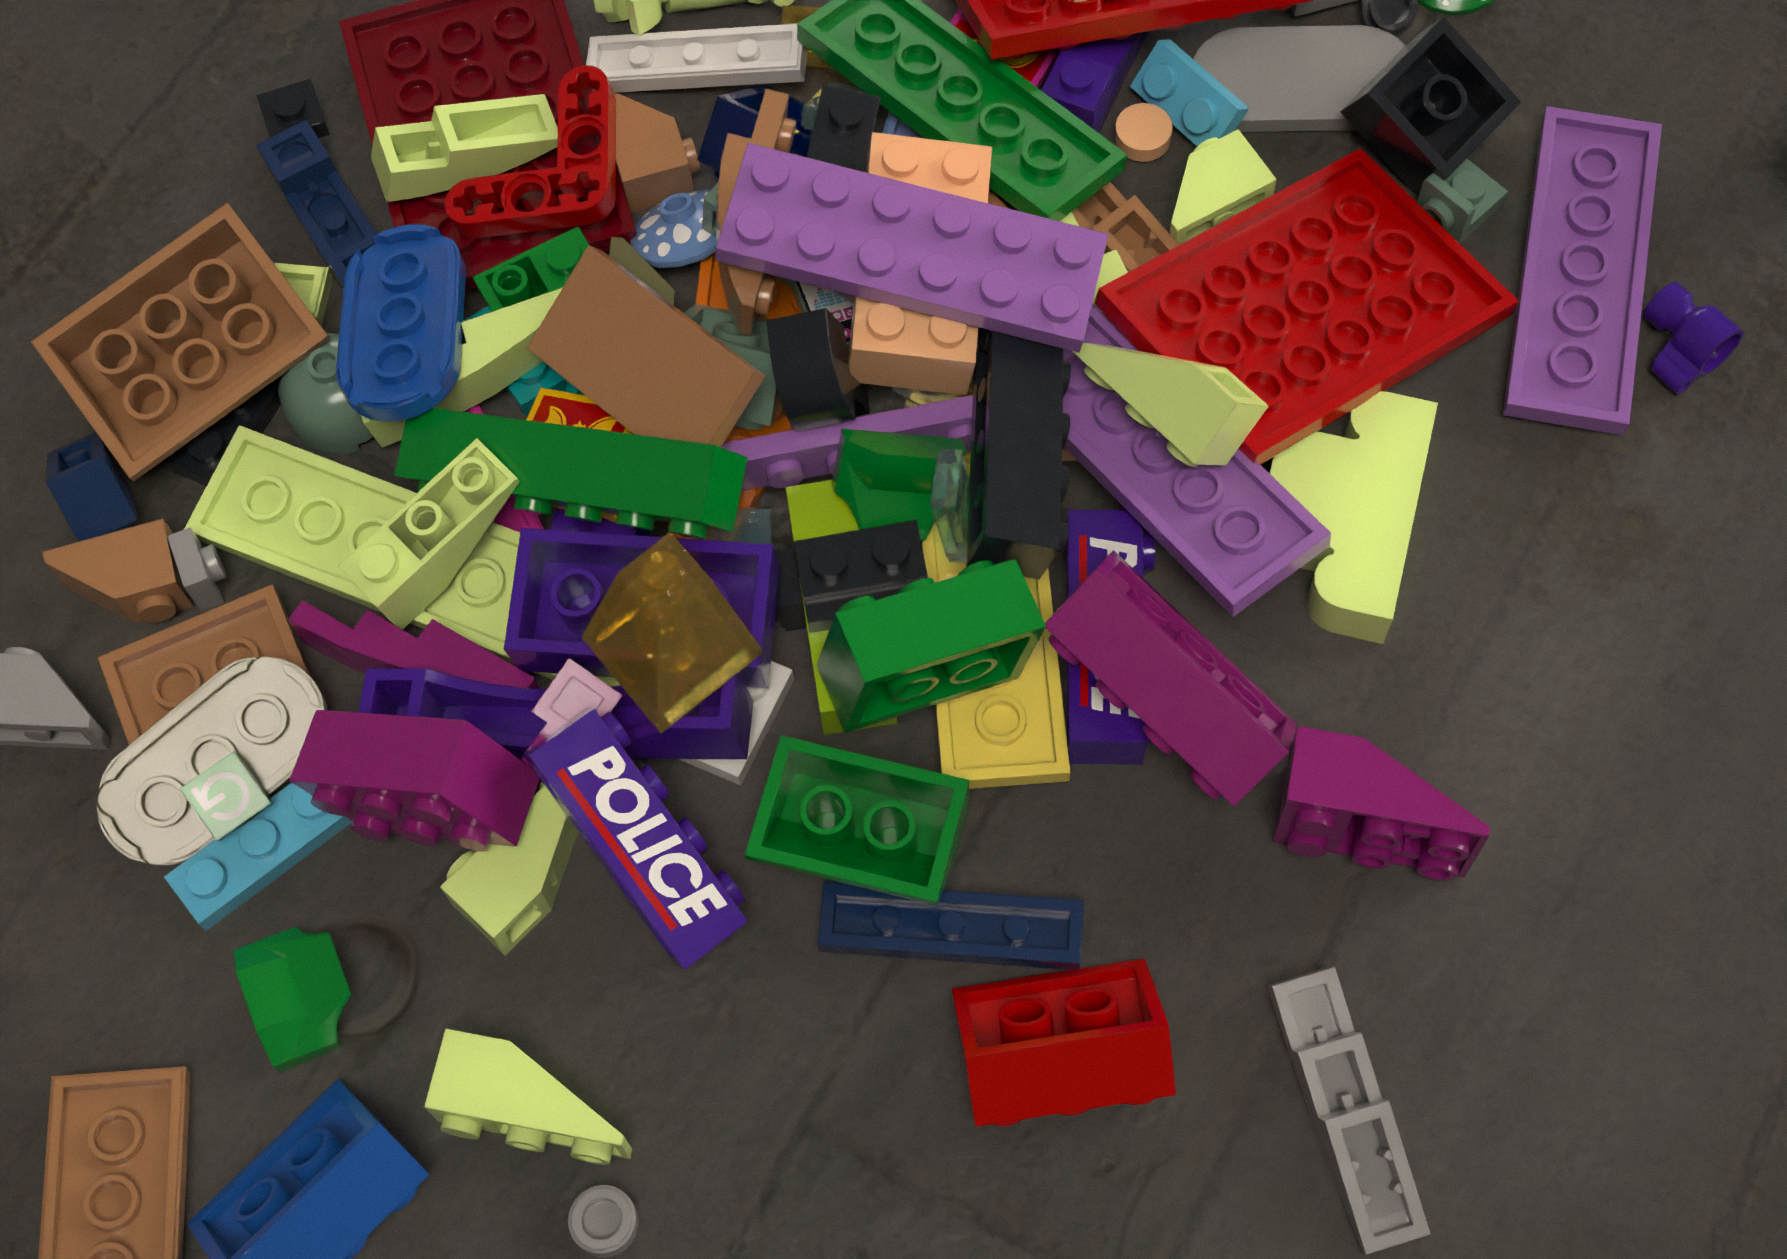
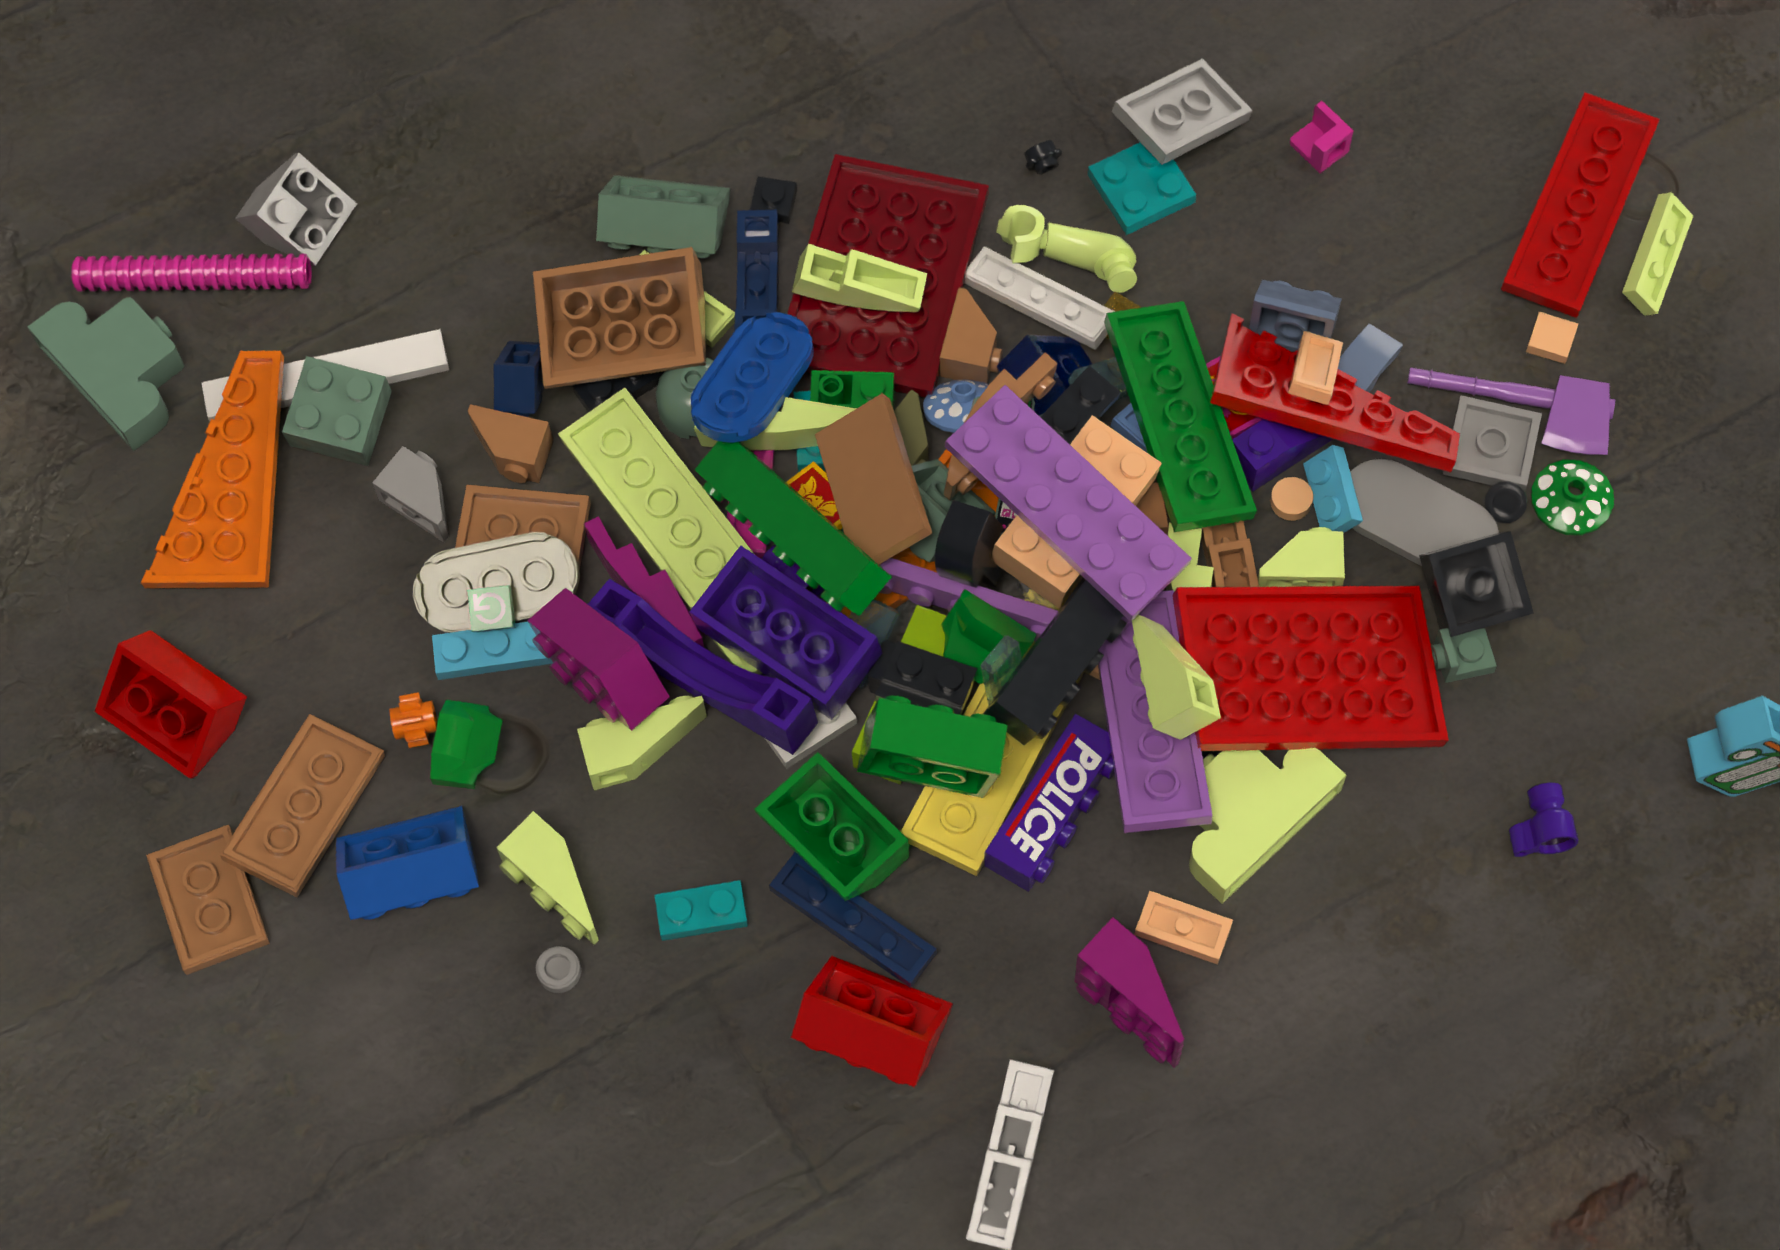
camera: 30 degrees right, 0 degrees up
(158, 200) = (662, 215): none -> sand green slope
(198, 568) = (552, 462): light grey plate -> none
(204, 1002) = (413, 720): none -> orange gear
(431, 535) = (689, 520): yellowish green slope -> none
(568, 696) = (708, 668): plate -> none
(571, 175) = (909, 337): red beam -> none
(637, 837) = (700, 763): dark purple brick -> none
(668, 633) = (783, 656): clear yellow slope -> none
(745, 1029) = (701, 910): none -> teal plate
(1171, 680) = (1065, 846): magenta slope -> none
(1366, 695) = (1183, 927): none -> light nougat plate
(1583, 271) = (1509, 742): medium lavender plate -> none

